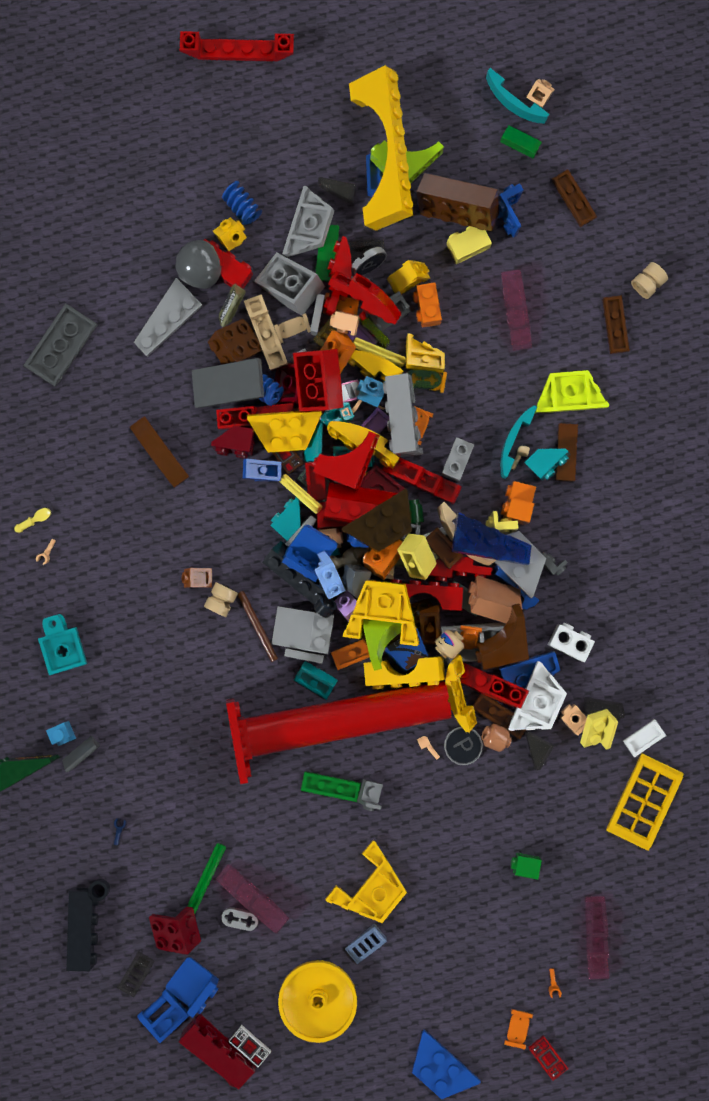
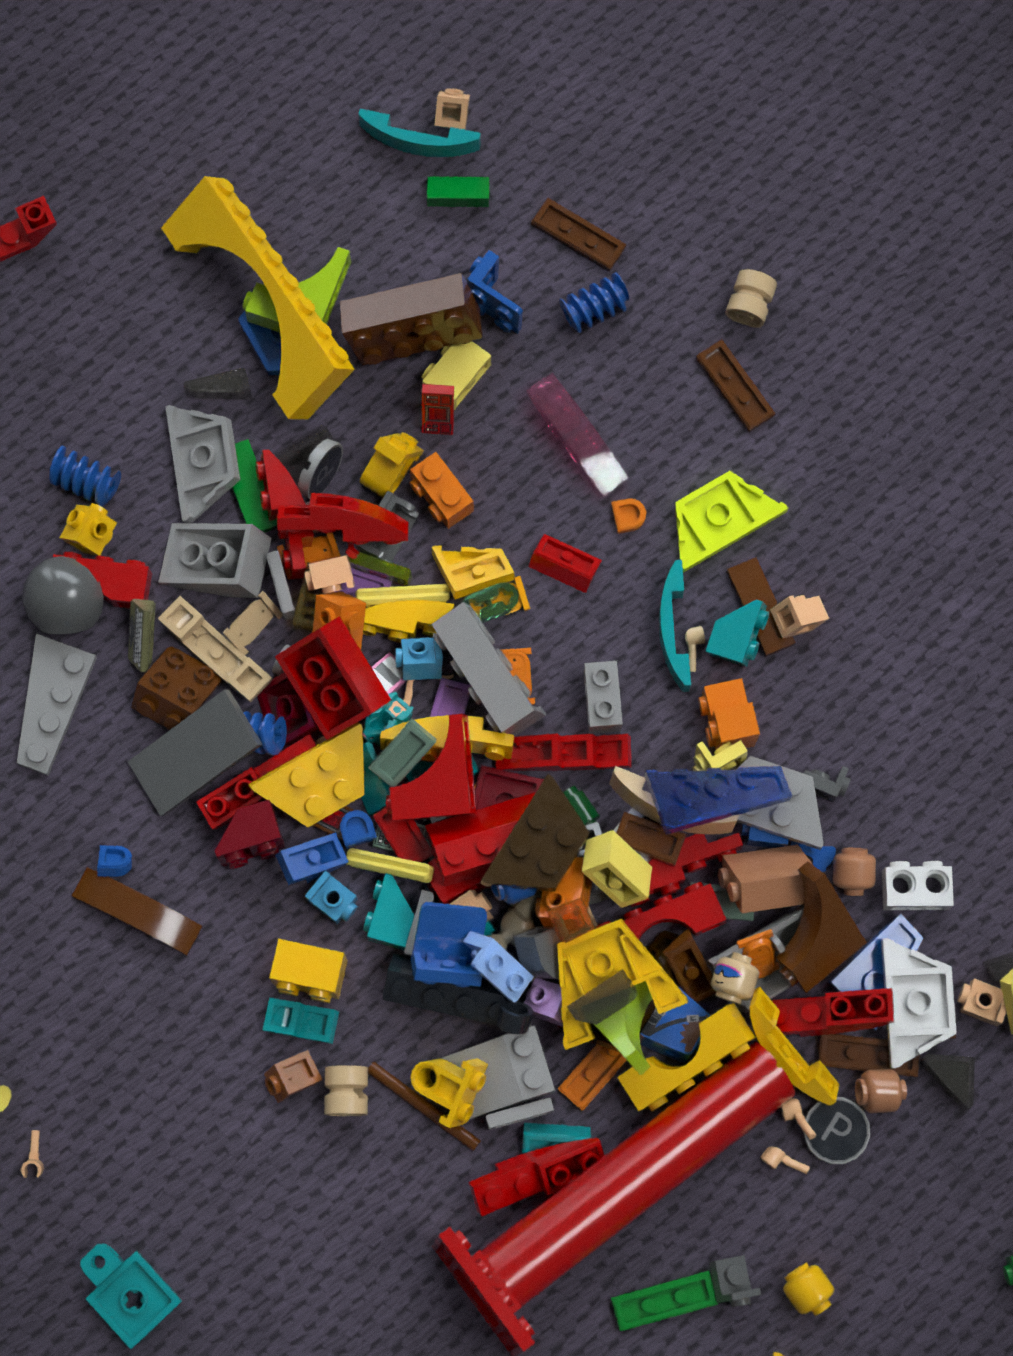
camera: 25 degrees left, 10 degrees down
(159, 419) = (114, 861): none -> blue tile
(216, 551) = (301, 1020): none -> teal slope
(231, 527) = (308, 970): none -> yellow brick
(258, 489) = (318, 898): none -> dark azure brick
(276, 625) = (453, 1086): none -> yellow pin
(293, 465) = (357, 828): none -> blue tile
(298, 689) = (533, 1172): none -> red slope
(335, 438) = (402, 753): none -> sand green tile
(375, 622) = (604, 999): none -> clear smoke piece
(378, 572) = (570, 920): none -> clear orange slope
(406, 818) = (808, 1289): none -> yellow head
(446, 724) = (793, 1110): none -> light nougat hand
(448, 259) = (438, 409): none -> tile
(474, 377) = (564, 563): none -> red slope
(522, 367) = (628, 514): none -> orange tile
(542, 617) = (854, 871): none -> nougat head
(563, 241) = (595, 302): none -> blue piece
(584, 467) = (799, 615): none -> light nougat brick

